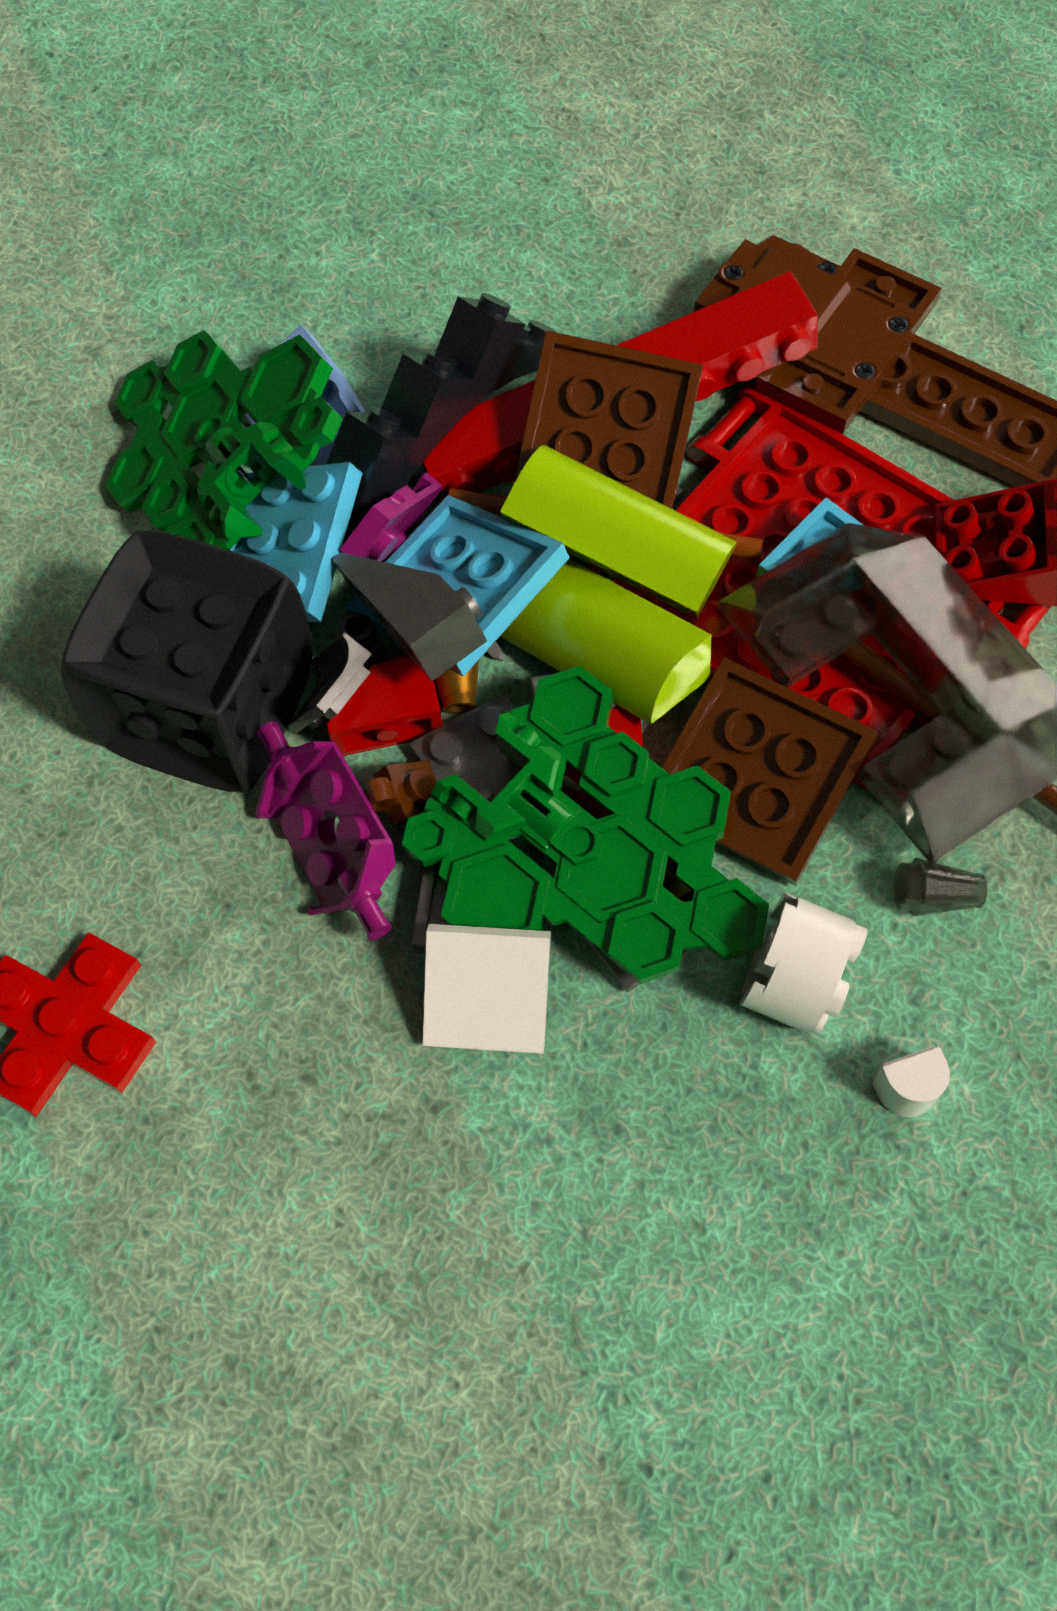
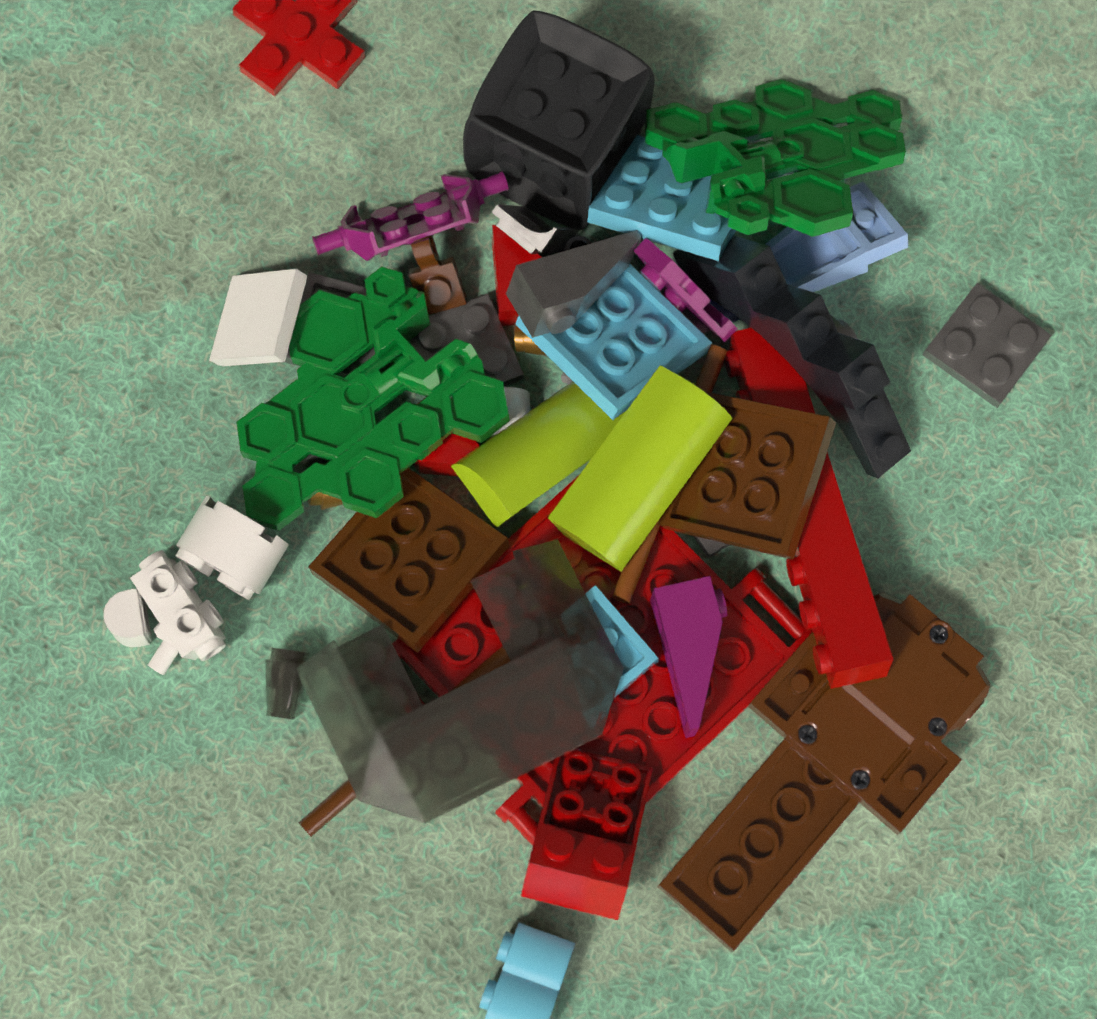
camera: 90 degrees right, 10 degrees up
(401, 284) = (986, 345): none -> flat silver plate
(796, 473) = (689, 631): none -> magenta slope
(900, 1011) = (183, 619): none -> white brick

